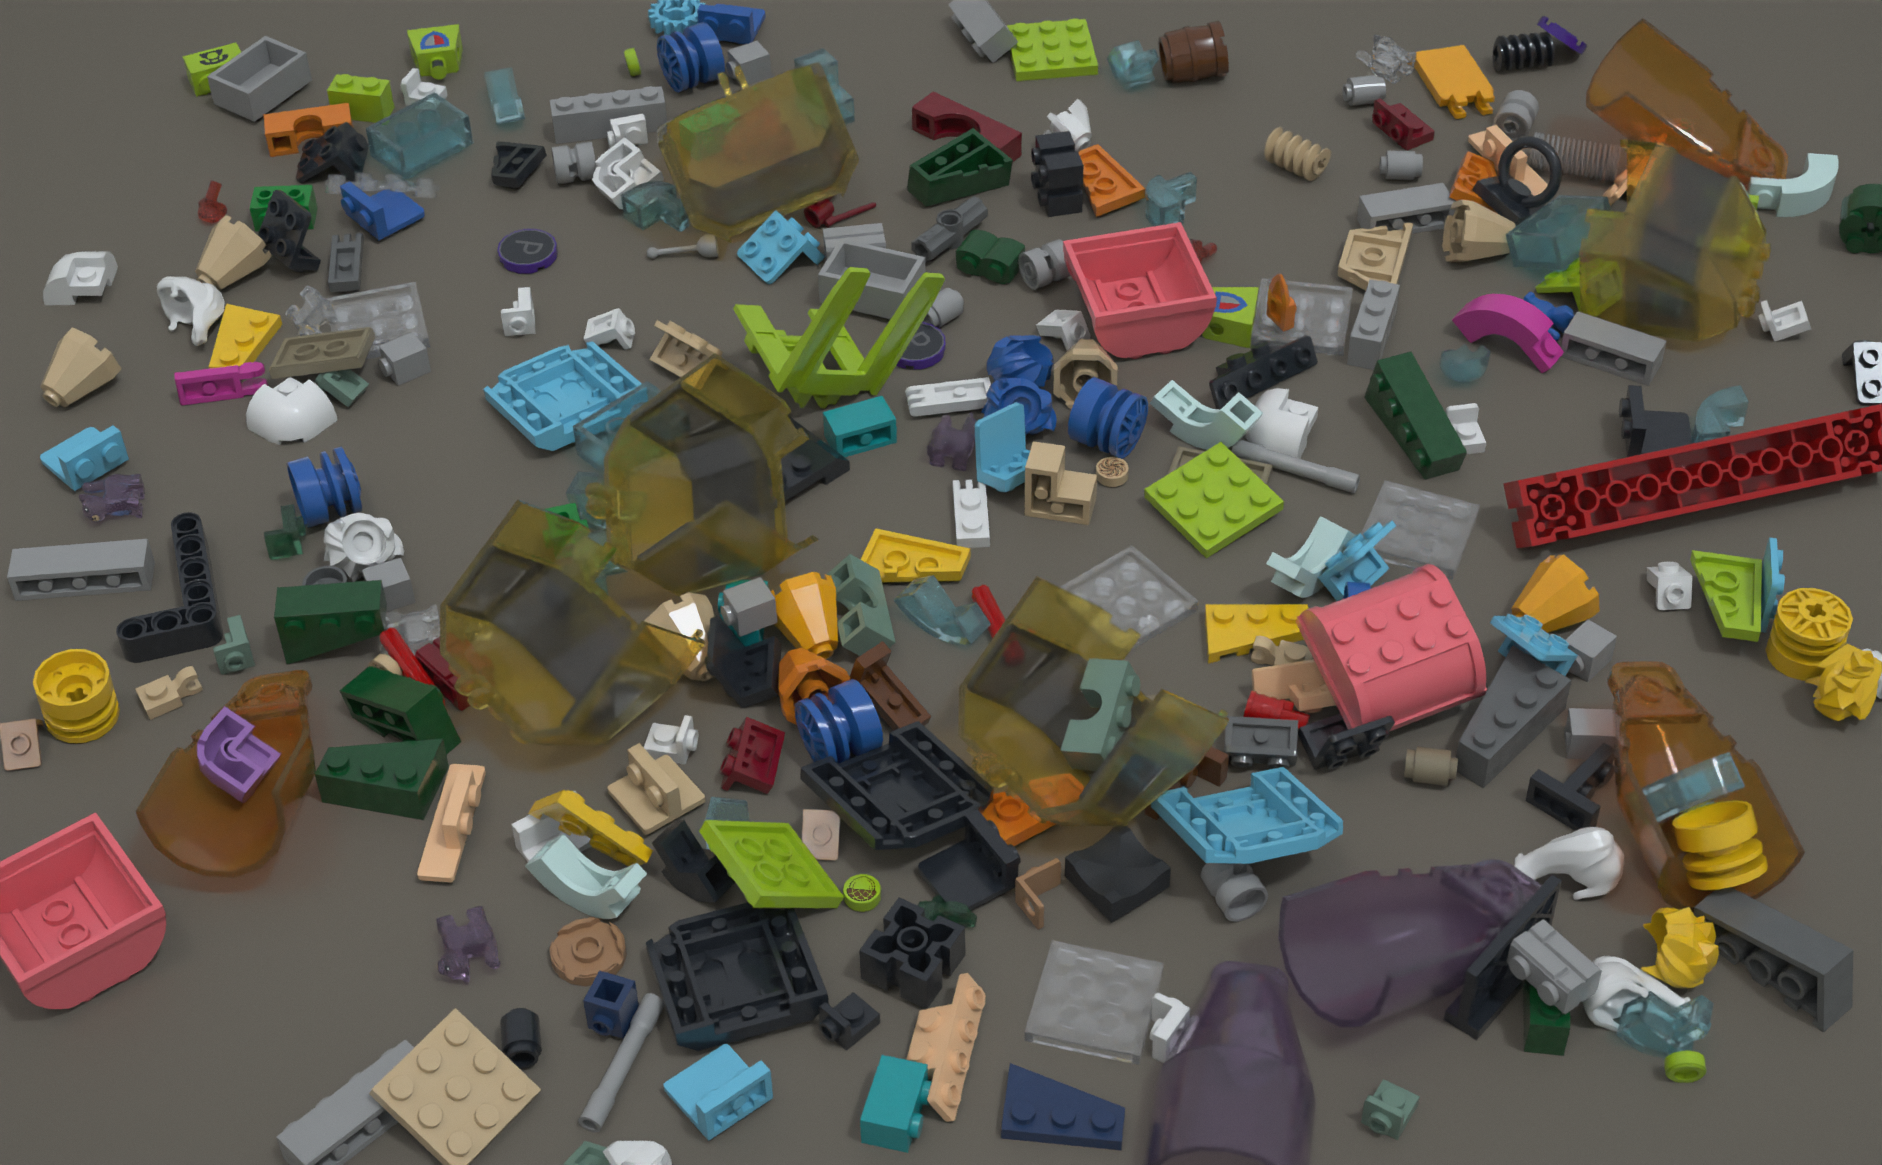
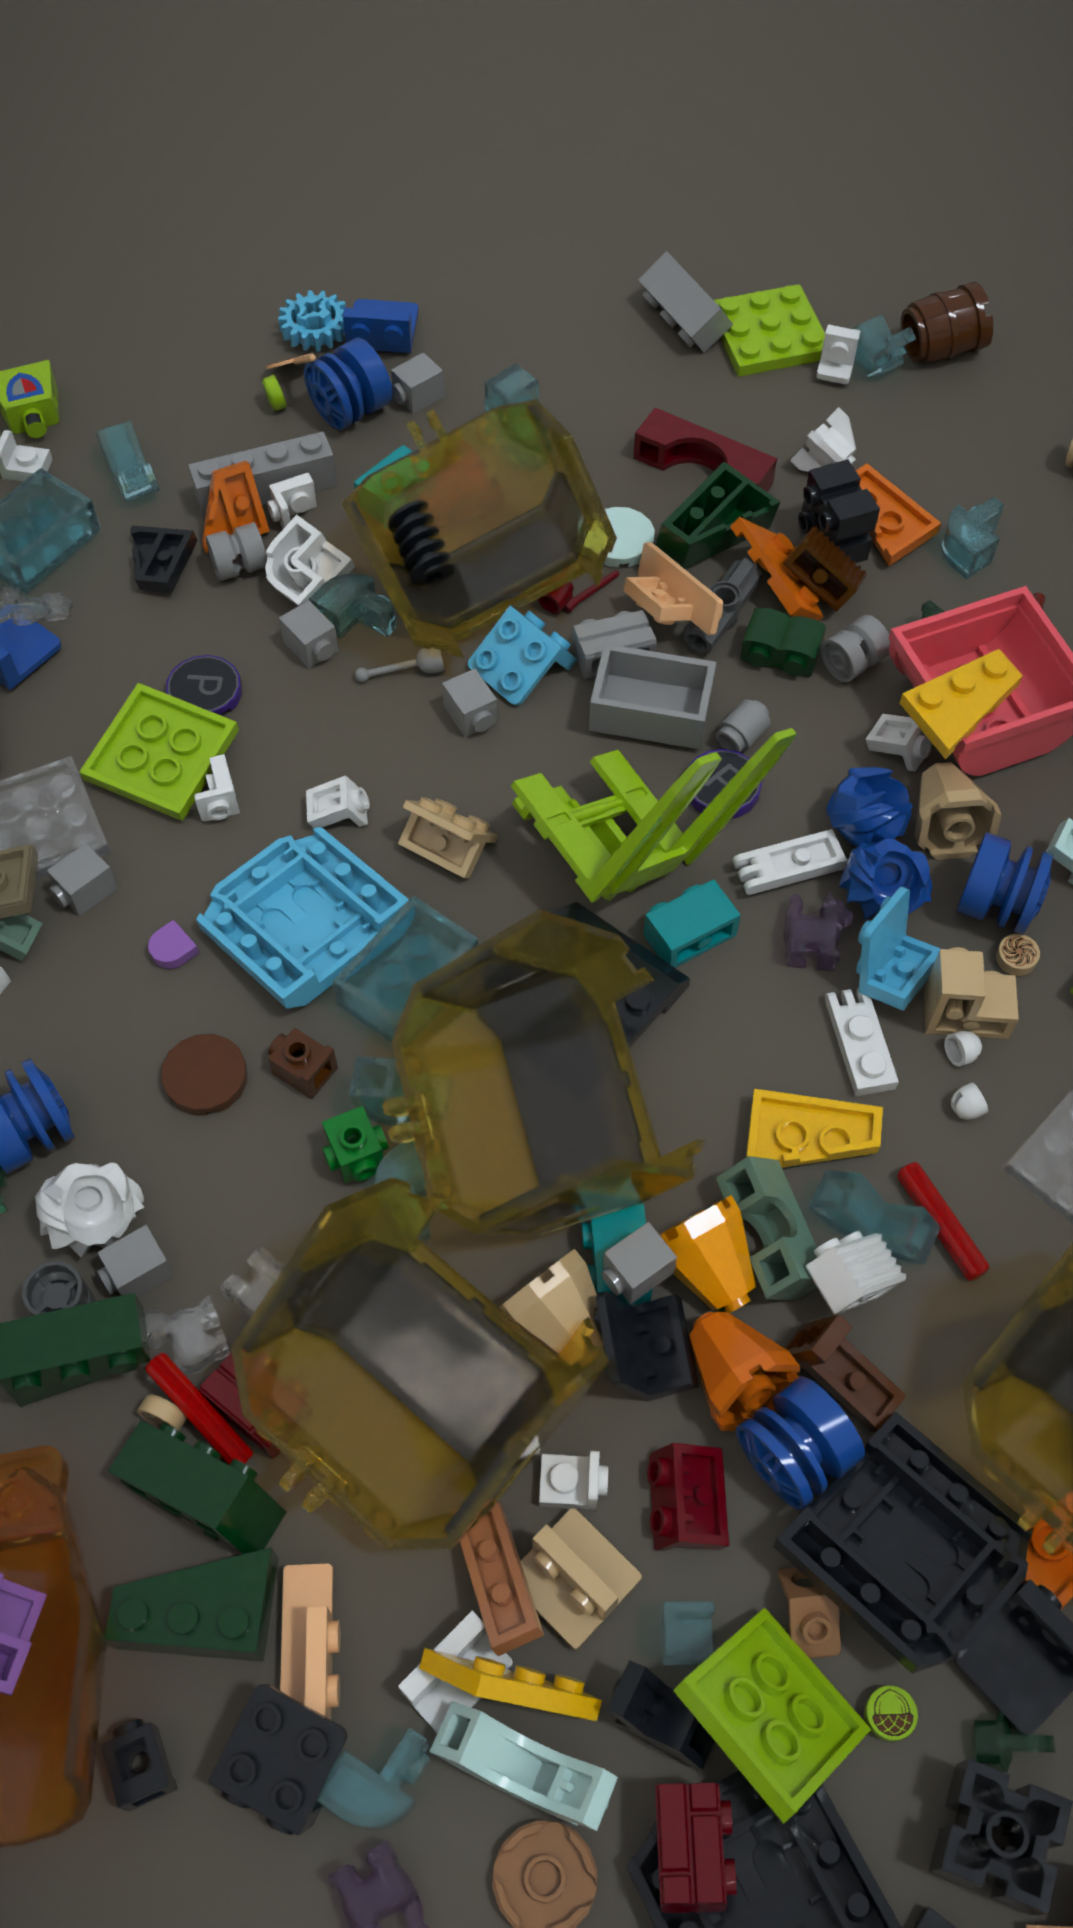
camera: 10 degrees left, 15 degrees up
(322, 855) = (135, 1789): none -> black brick
(416, 852) = (279, 1759): none -> black bracket
(462, 408) = (171, 946): none -> medium lavender tile
(466, 485) = (204, 1074): none -> reddish brown tile
(470, 884) = (373, 1799): none -> clear light blue brick
(481, 284) = (159, 751): none -> lime plate
(535, 478) = (306, 1072): none -> reddish brown brick
(580, 125) = (233, 501): none -> orange wing
(600, 777) = (500, 1584): none -> nougat plate
(616, 221) = (308, 634): none -> light grey brick
(648, 41) = (296, 360): none -> light nougat piece
(690, 926) = (691, 1848): none -> dark red brick
(715, 163) = (417, 544): none -> black piece
(730, 275) = (470, 703): none -> light grey brick
(882, 179) = (632, 532): none -> light aqua tile
(907, 213) = (672, 592): none -> light nougat bracket
(913, 635) = (854, 1271): none -> white brick
(1004, 205) = (770, 552): none -> orange wing
(1035, 208) = (825, 569): none -> reddish brown brick
(1039, 555) = (969, 1102): none -> white hinge
(1047, 522) = (962, 1047): none -> white hinge
(1098, 68) = (838, 354): none -> white bracket
(1098, 286) = (959, 699): none -> yellow wing

